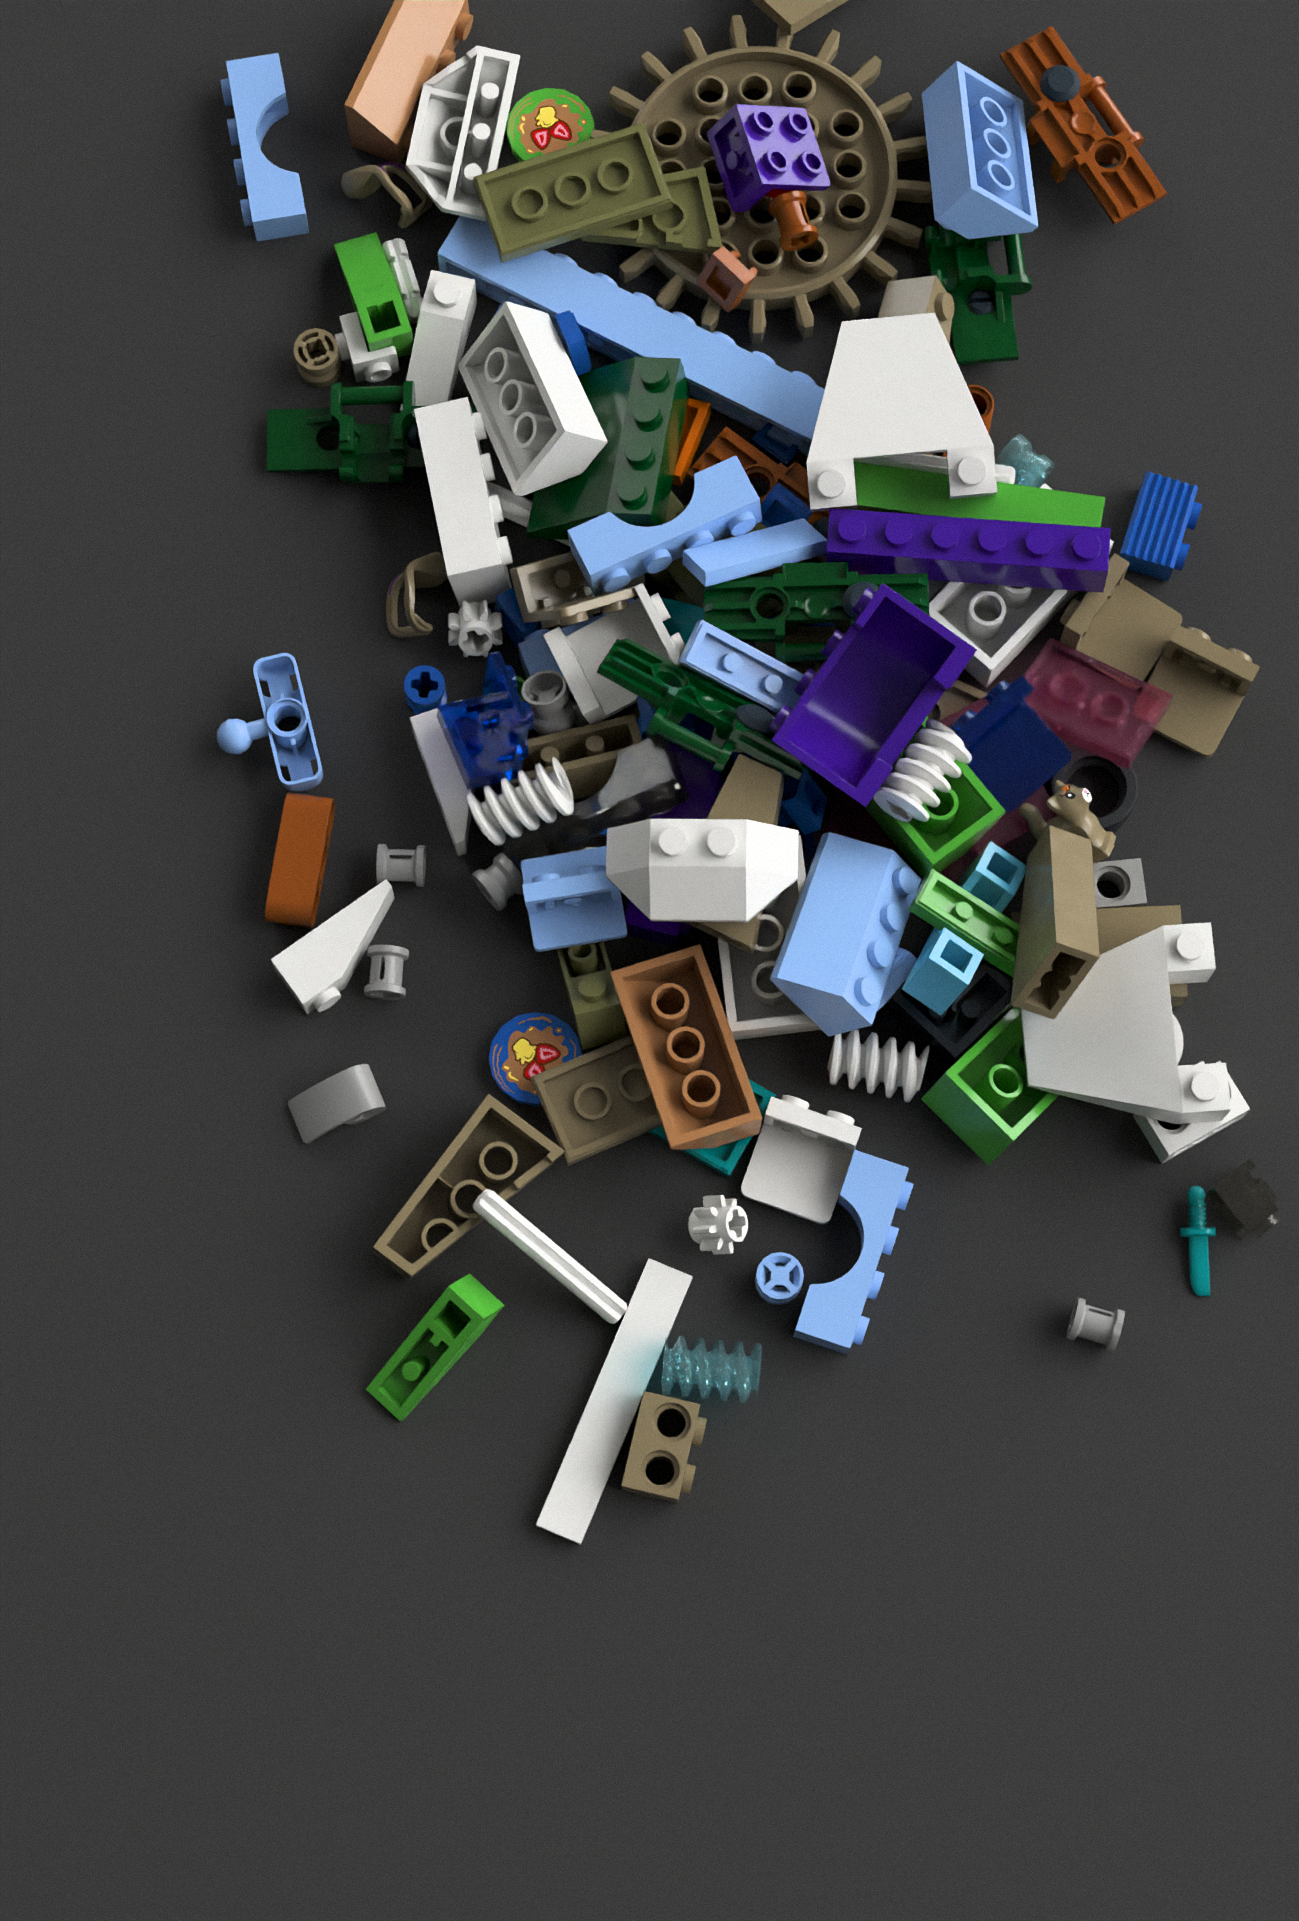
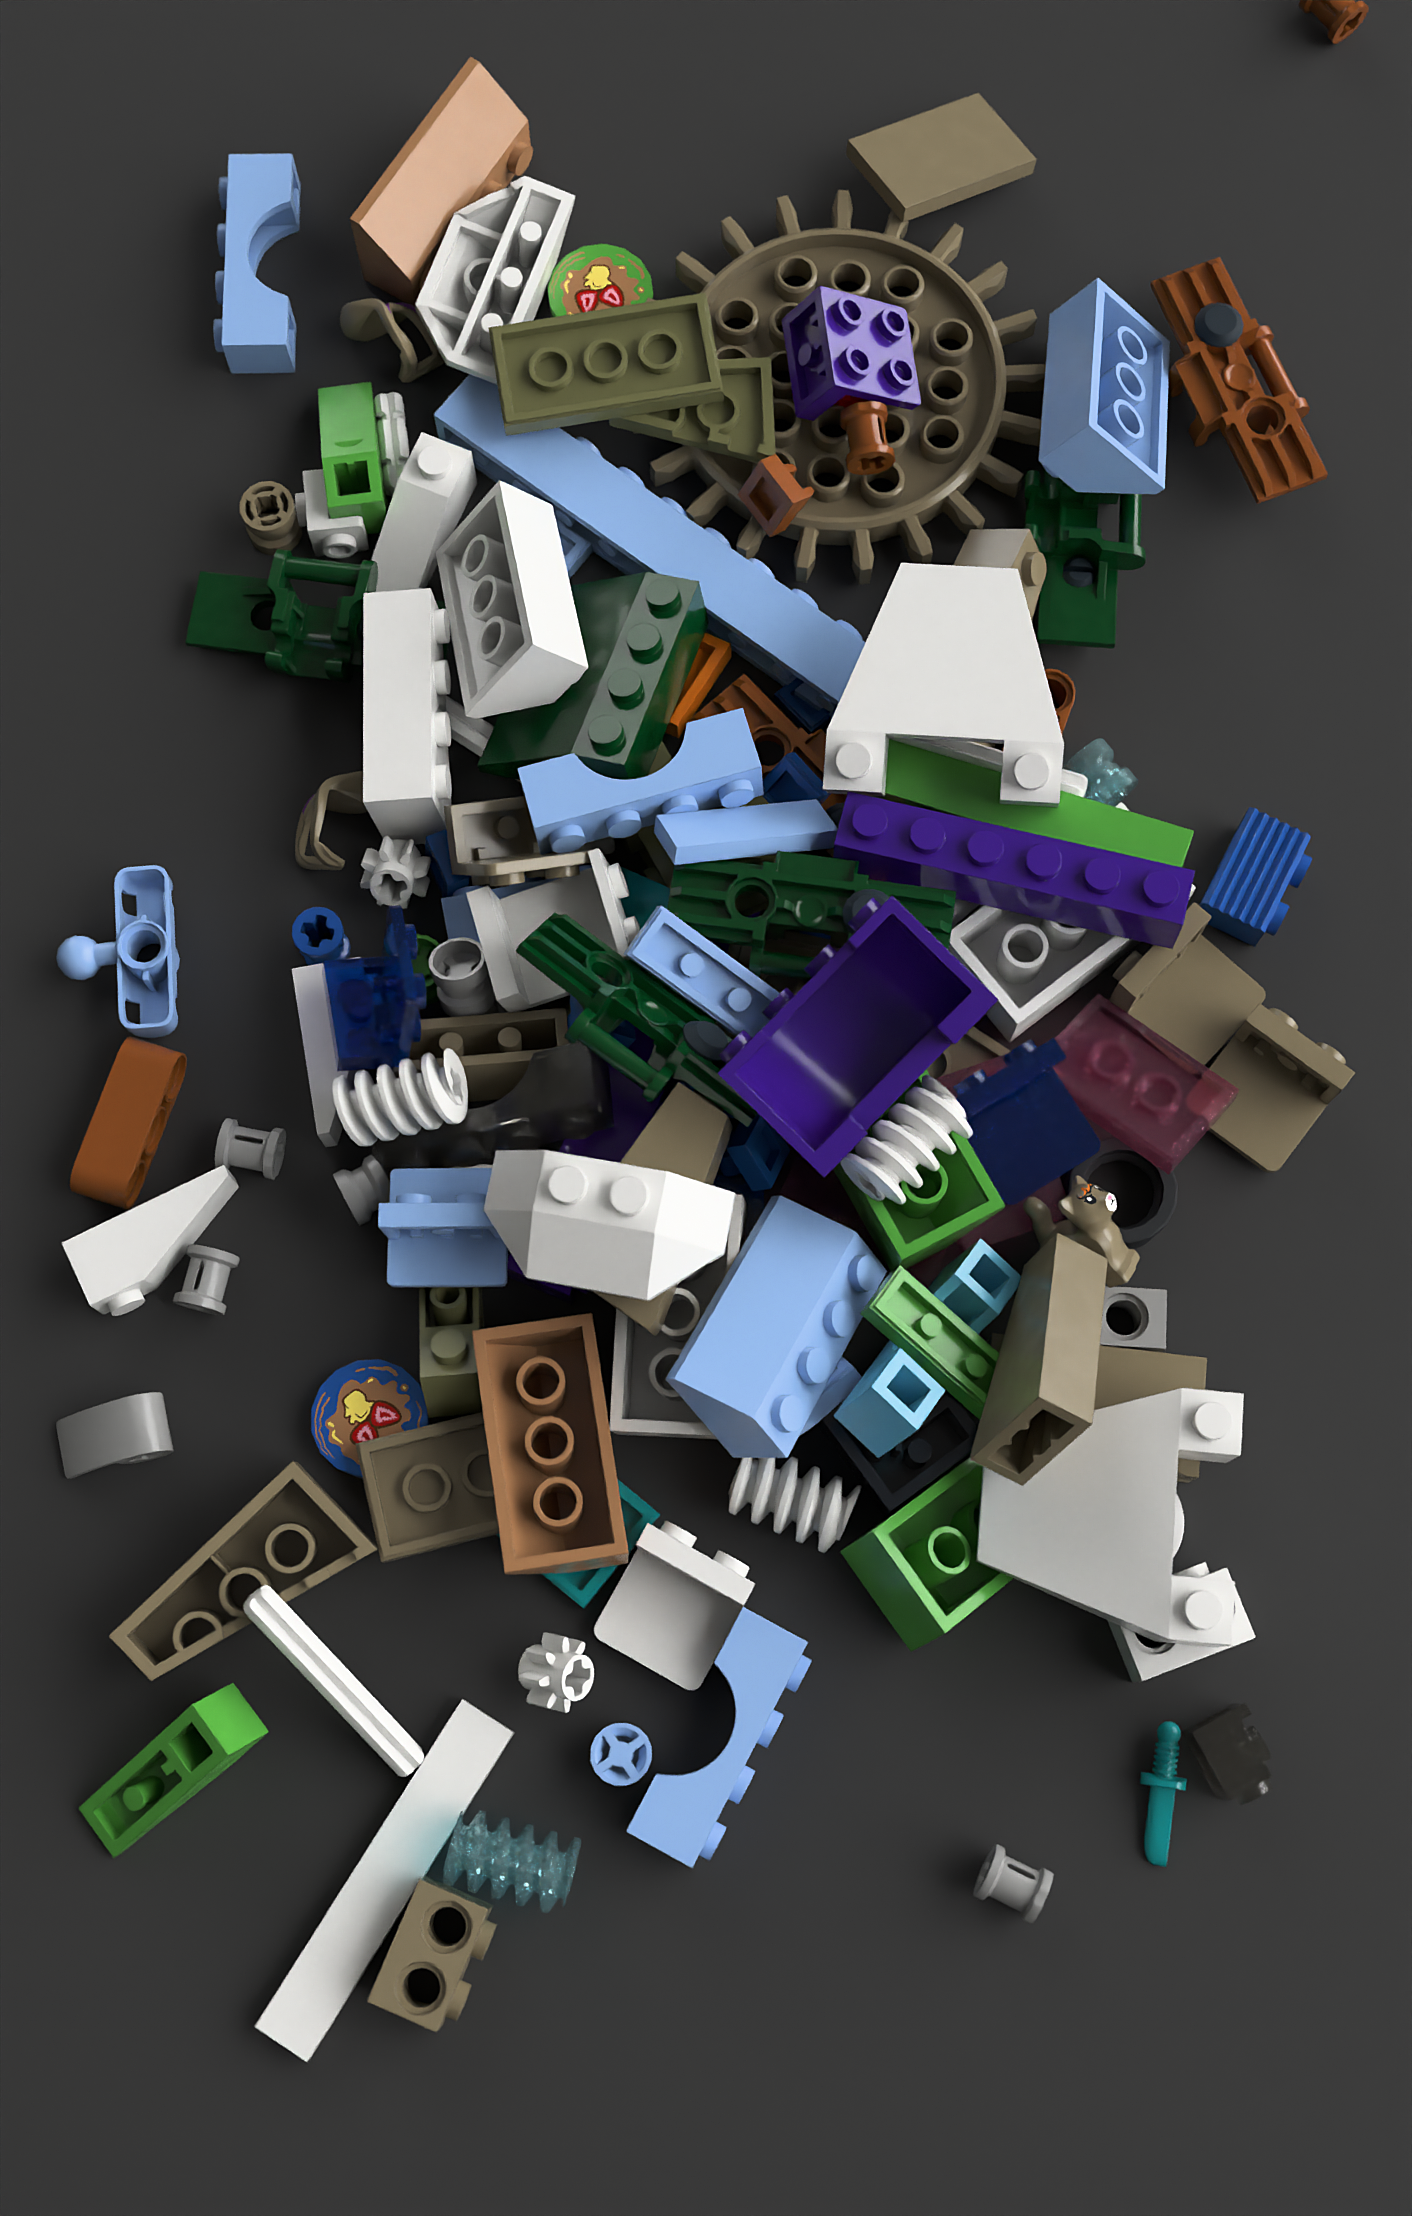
camera: 10 degrees right, 0 degrees up
(573, 342) = (576, 544): blue tile -> none

